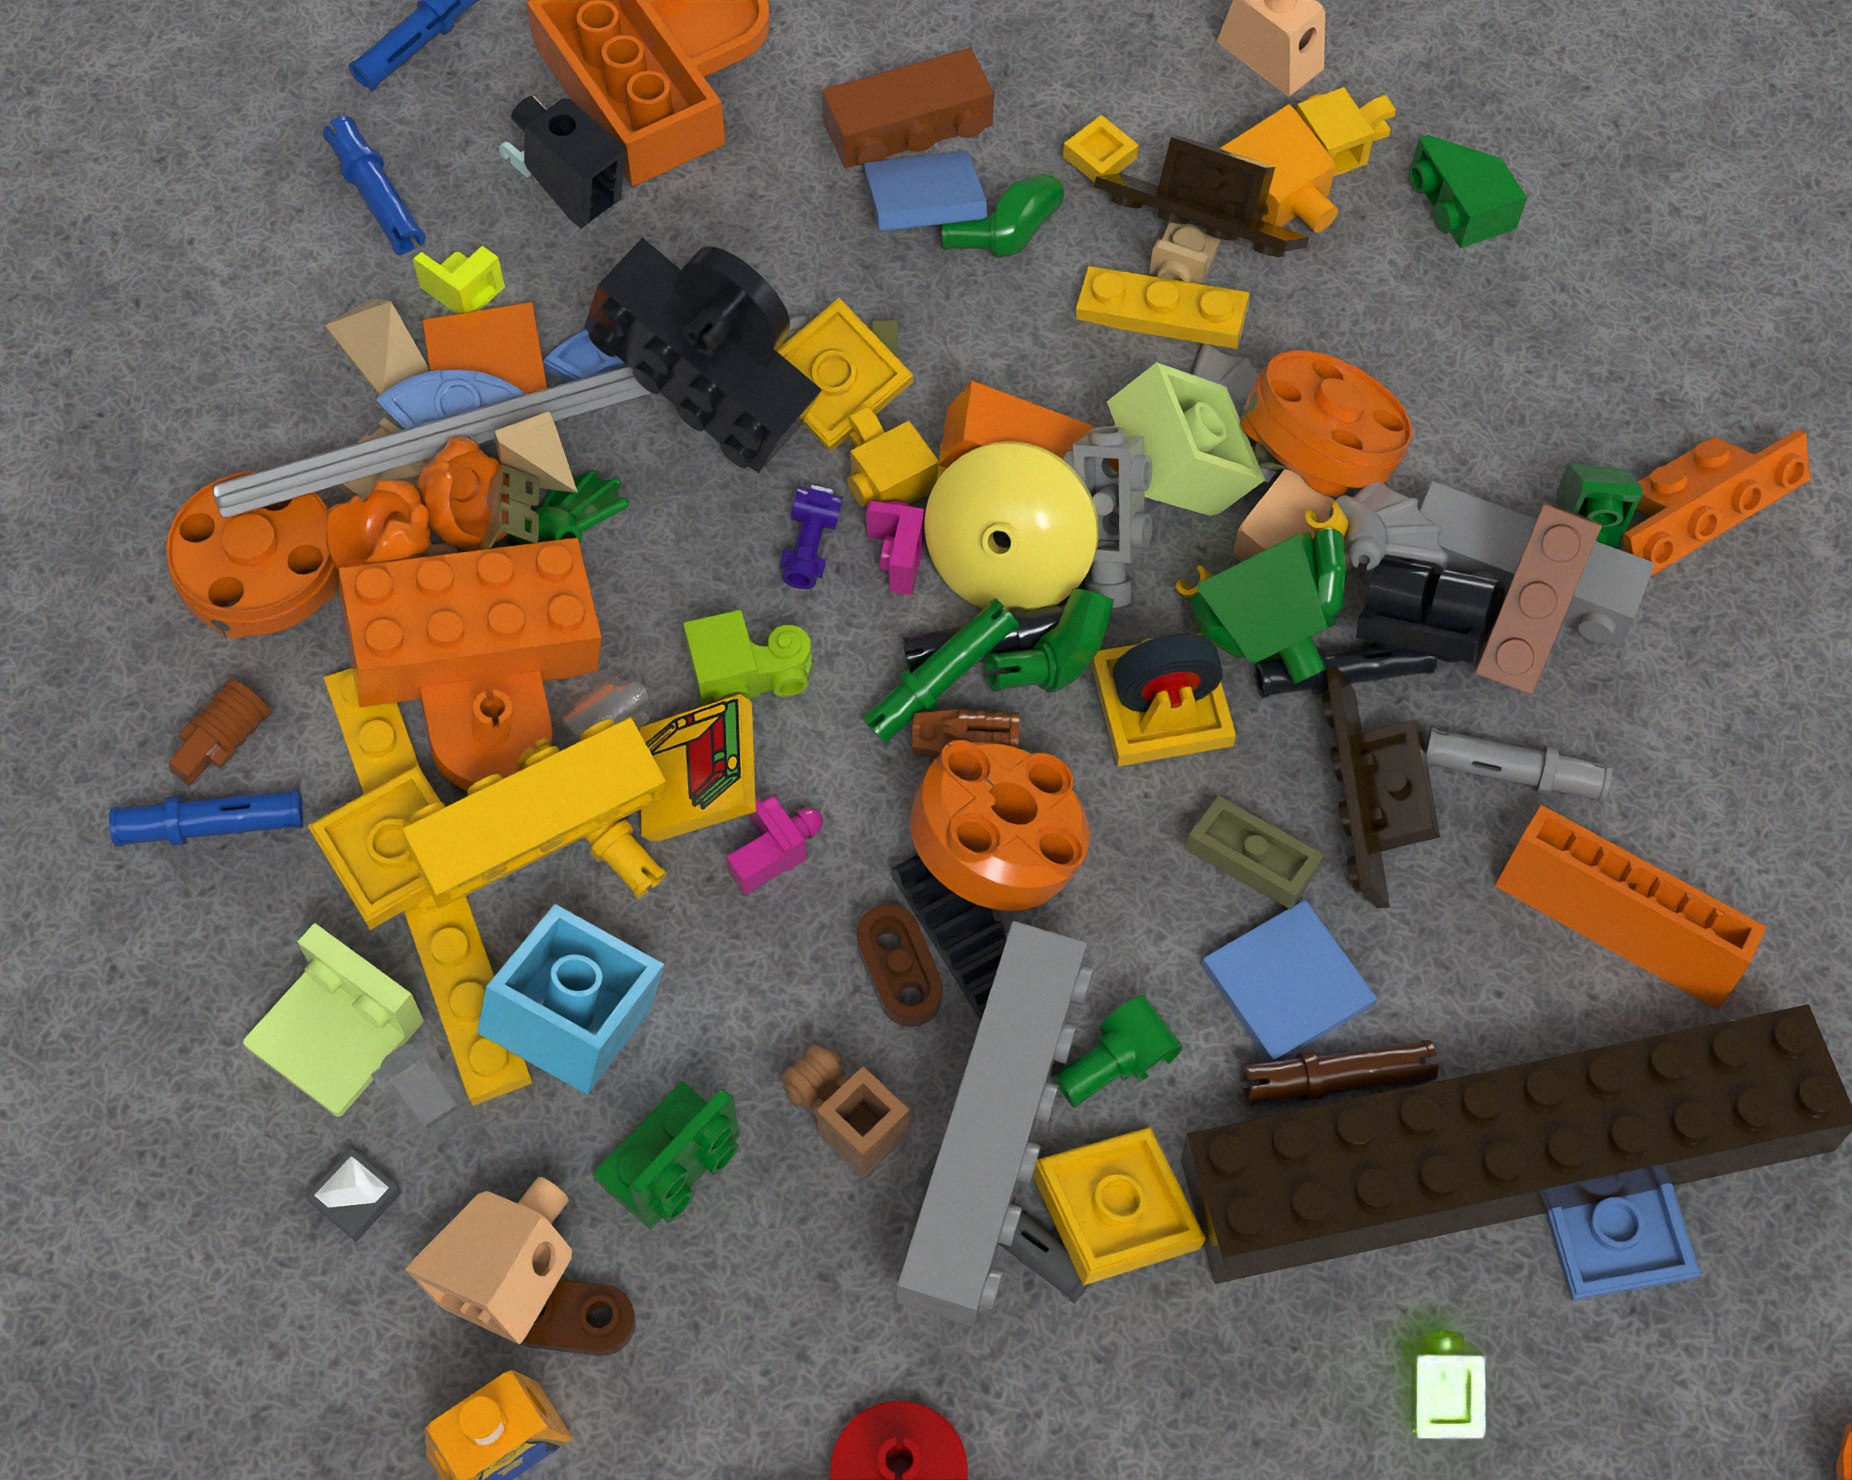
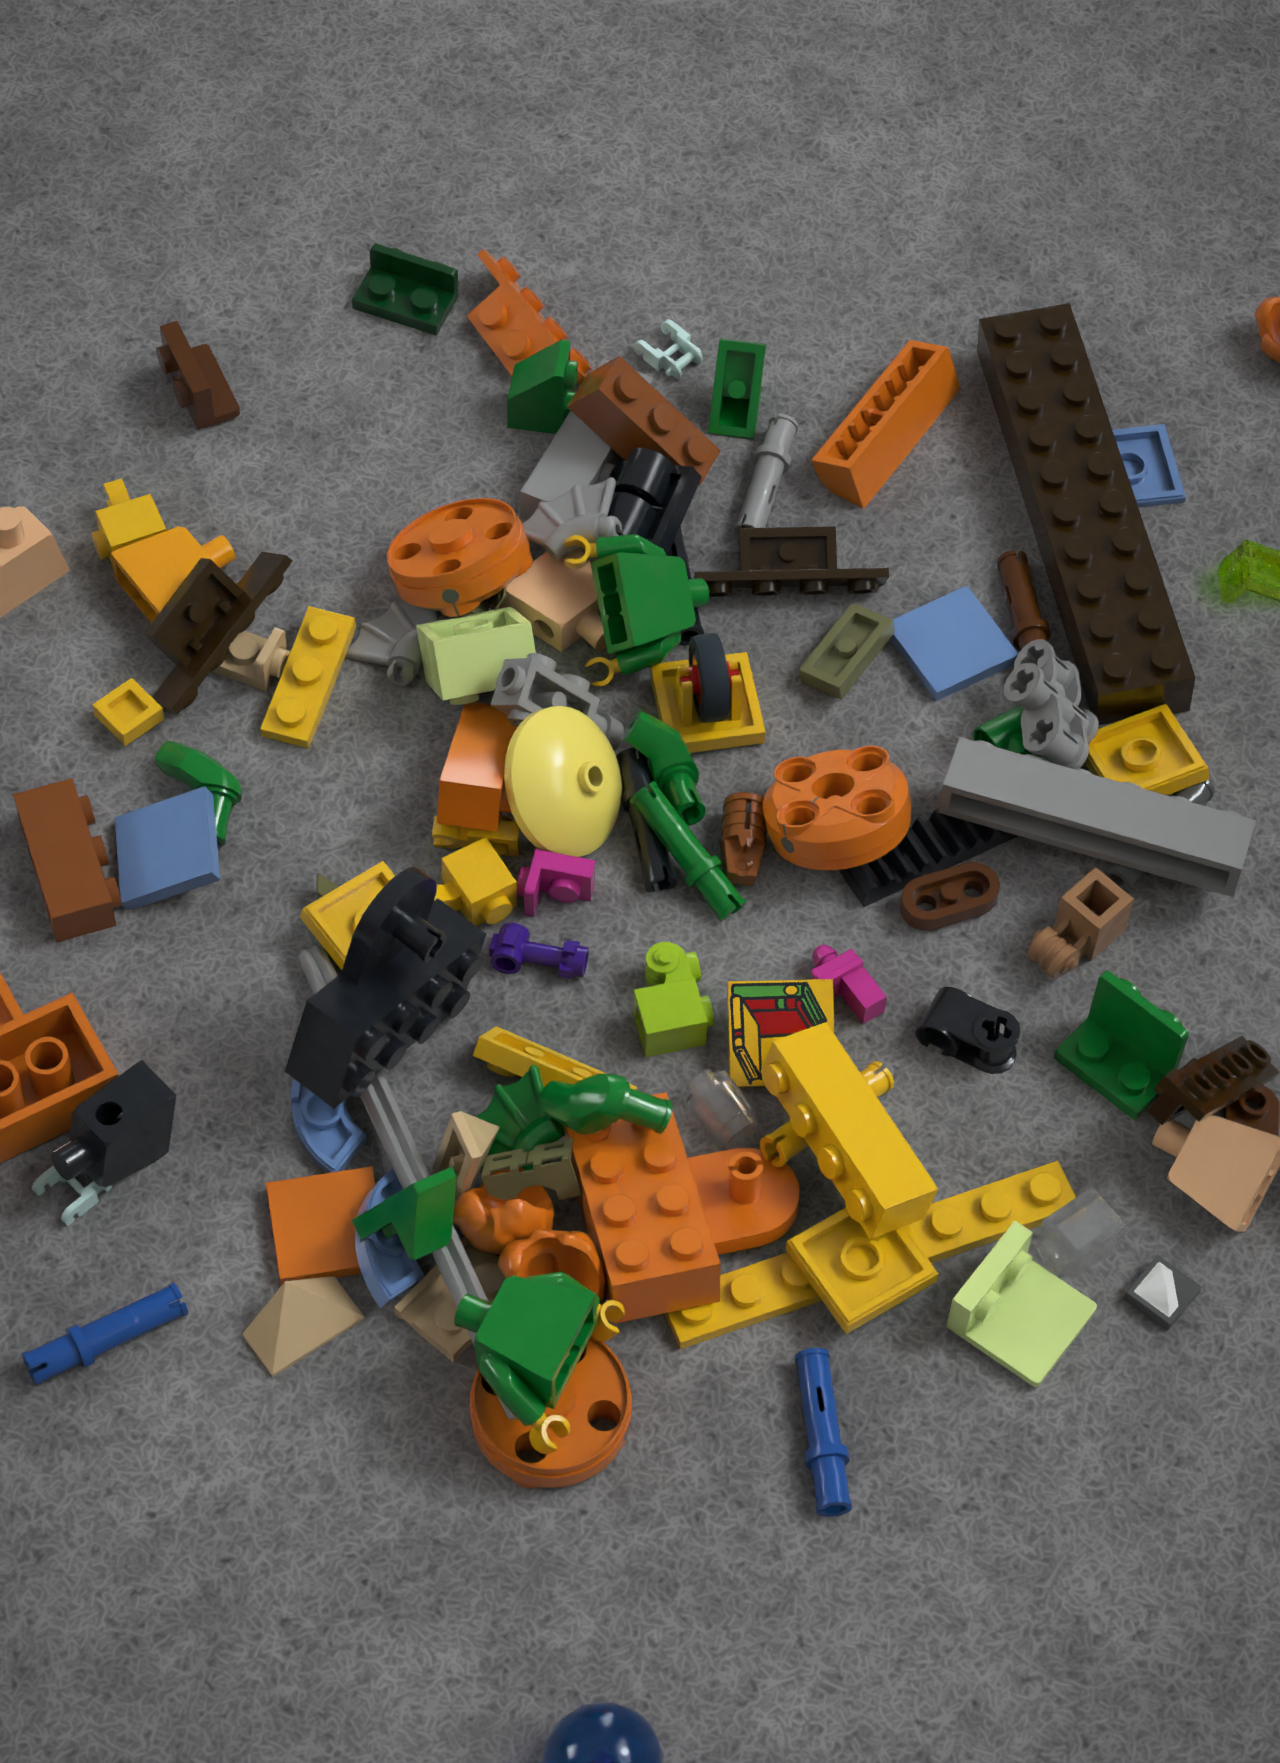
camera: 90 degrees left, 5 degrees down
(218, 731) = (738, 1428): dark orange hinge -> none
(275, 492) = (533, 1341): none -> green torso
(436, 391) = (416, 1214): none -> green slope
(461, 281) = (235, 1247): neon yellow panel -> none
(553, 548) = (600, 1101): none -> green arm
(569, 998) = (1003, 1114): medium azure brick -> none
(593, 1243) = (1213, 1081): none -> dark brown bracket
(654, 551) = (513, 1055): none -> yellow plate
(707, 973) = (968, 1029): none -> black piece
(1163, 1072) = (1051, 697): none -> light grey axle
(1468, 188) = (205, 444): green slope -> none
(1562, 169) = (196, 378): none -> reddish brown bracket
(1647, 723) = (737, 388): none -> green slope
(1721, 672) = (660, 359): none -> light aqua piece
(1737, 375) = (407, 289): none -> dark green bracket

